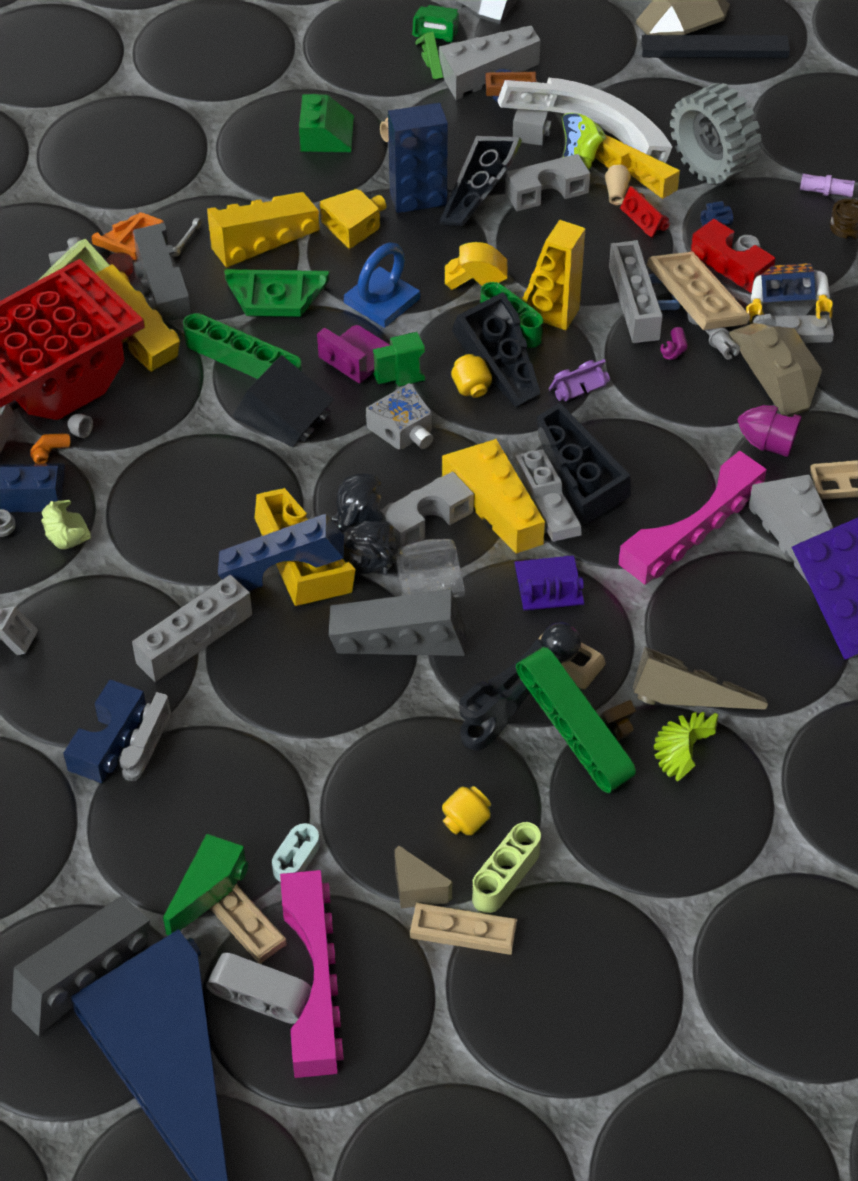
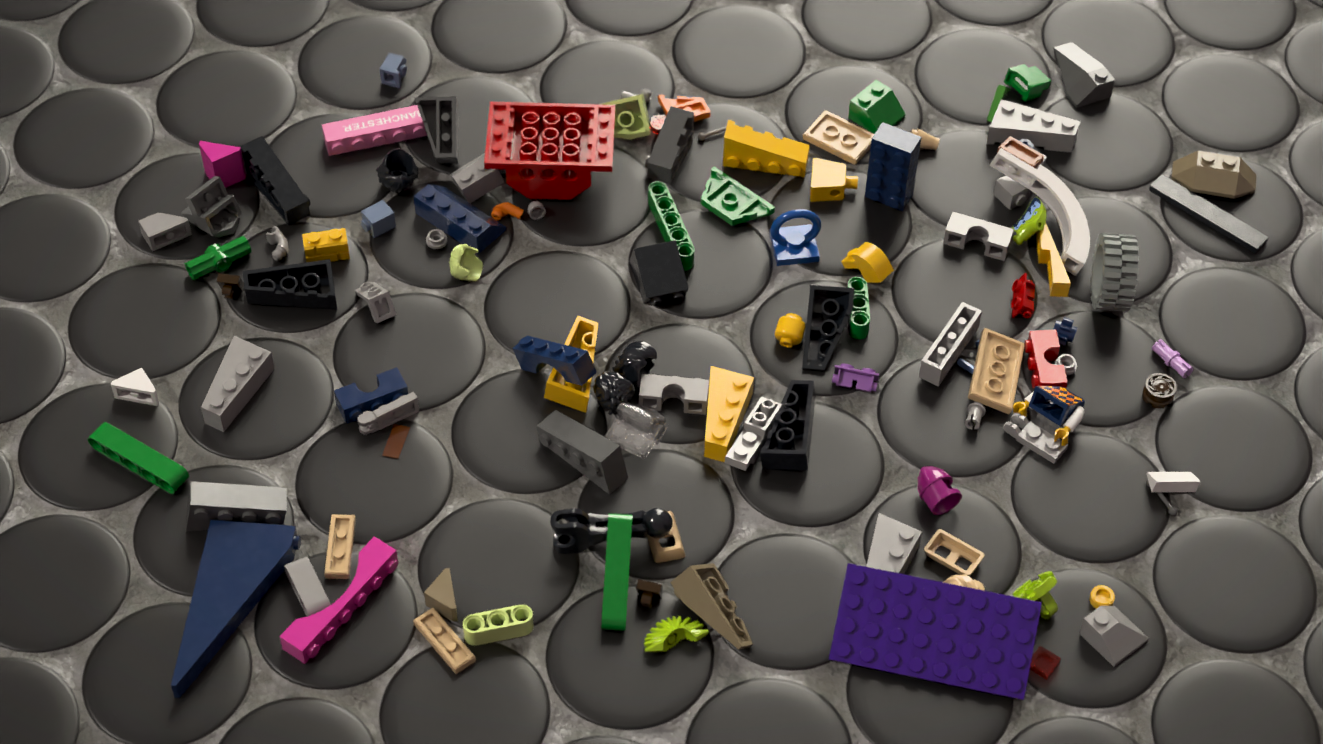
camera: 40 degrees right, 0 degrees up
(156, 342) = (625, 161): yellow wedge -> none
(180, 762) = (396, 441): none -> reddish brown sticker
(192, 628) = (472, 370): light grey brick -> none
(206, 882) = (334, 512): green slope -> none
(290, 849) = (401, 533): light aqua beam -> none
(315, 172) = (839, 137): none -> tan tile
(350, 352) = (737, 269): magenta bracket -> none
(399, 360) = (753, 291): green piece -> none
(401, 419) = (720, 328): light grey torso -> none
(466, 810) = (509, 578): yellow head -> none
(481, 172) = (935, 204): black wedge -> none
(549, 583) = (700, 486): dark purple hinge -> none
(558, 276) = (896, 301): yellow wedge -> none
(617, 182) = (1027, 264): tan cone -> none
(654, 549) = (781, 511): dark pink arch -> none
(677, 345) = (936, 398): magenta arm -> none
(780, 365) = (994, 454): dark tan wedge -> none

